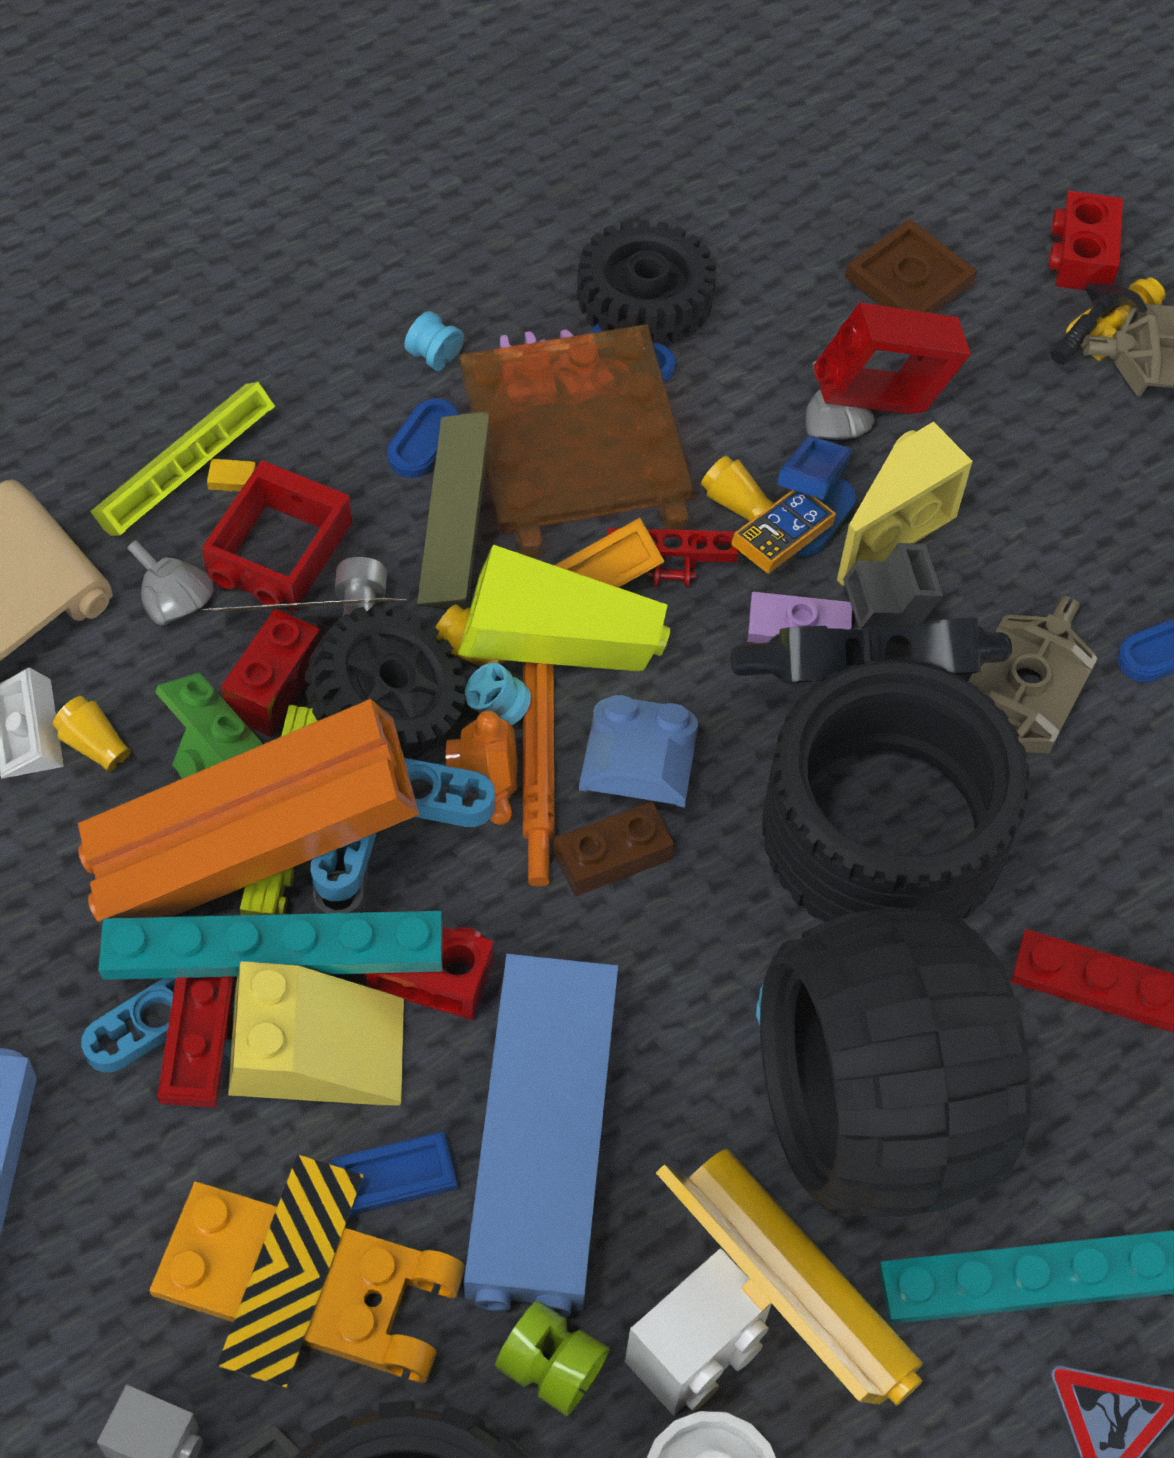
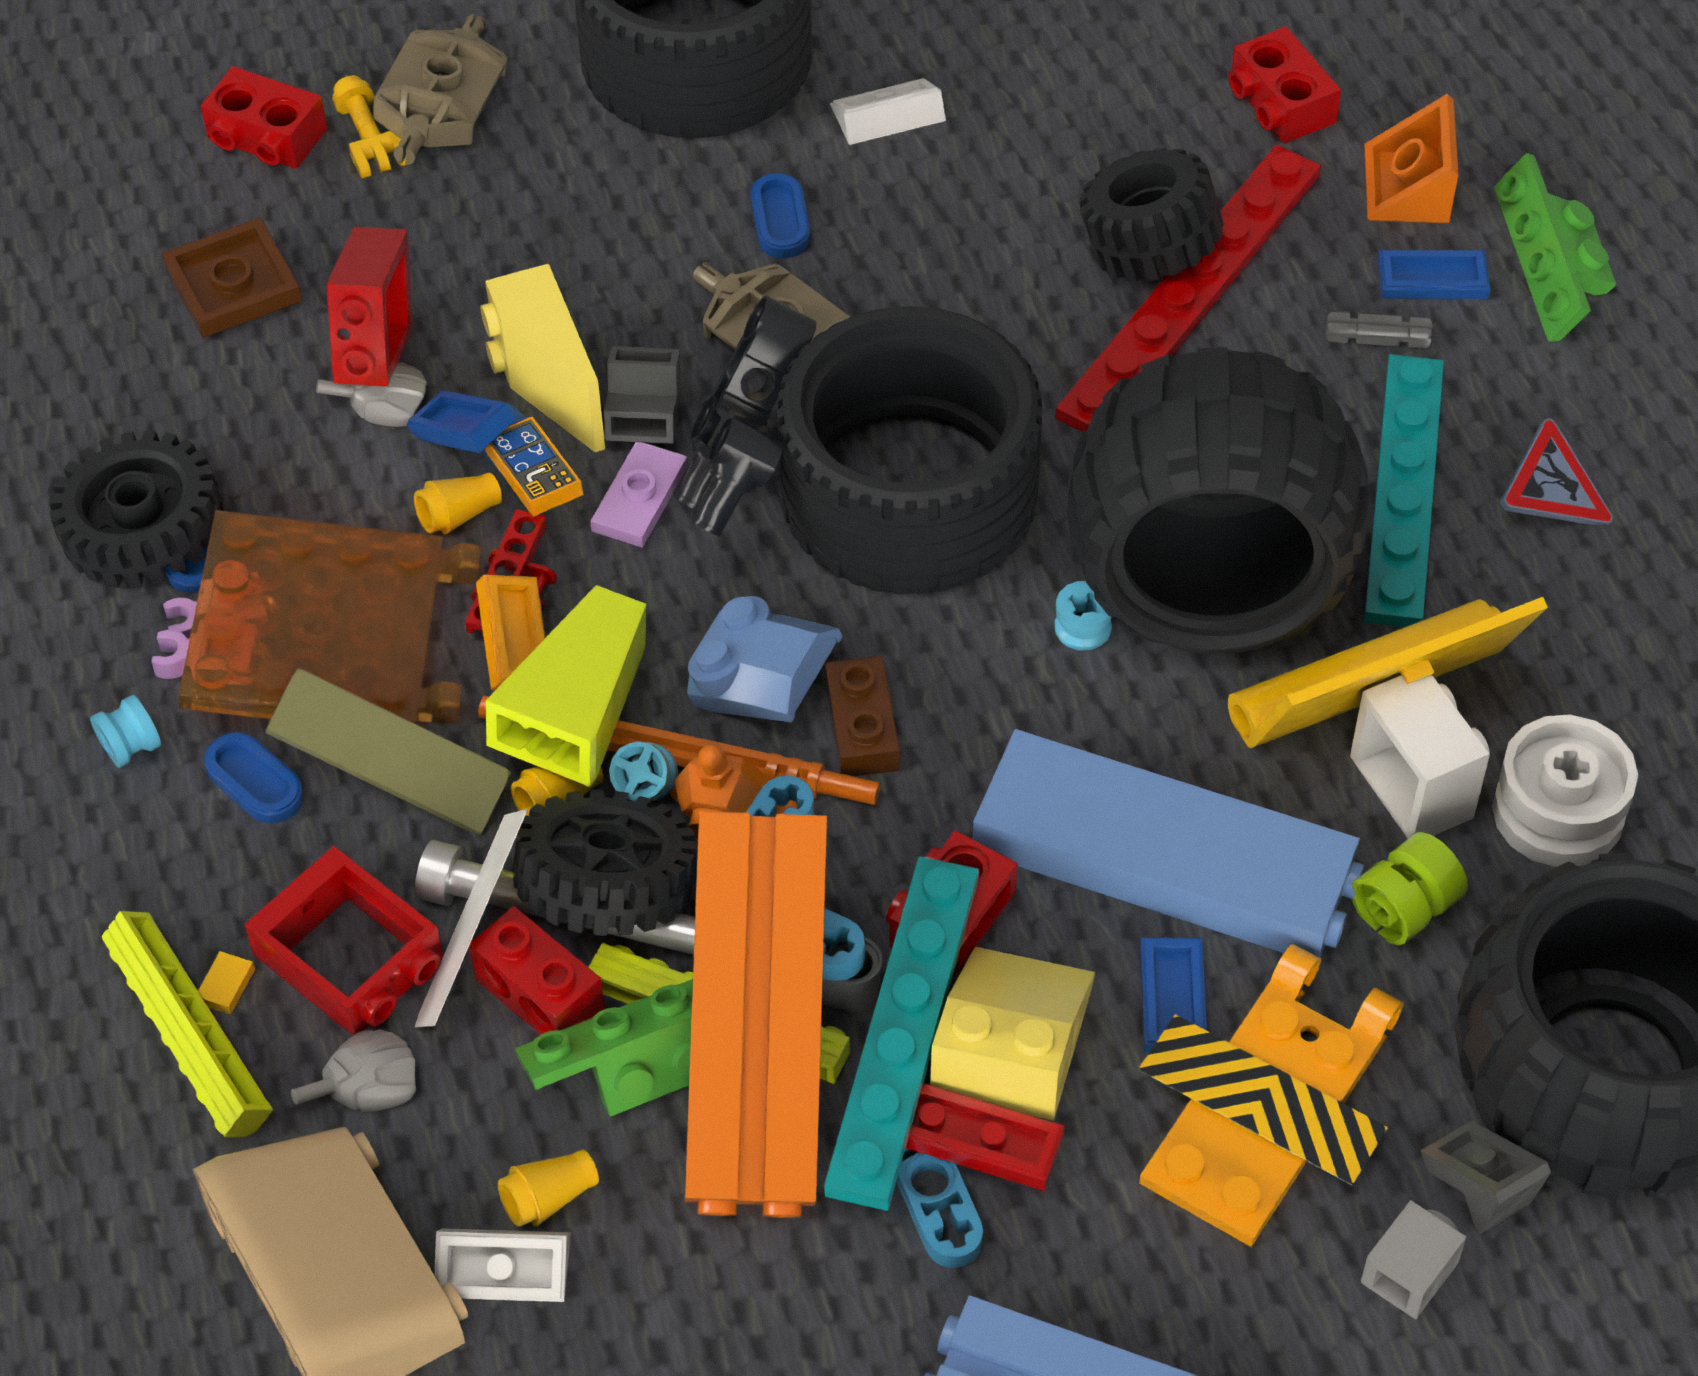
camera: 70 degrees left, 5 degrees down
(1103, 299) = (349, 121): black piece -> none

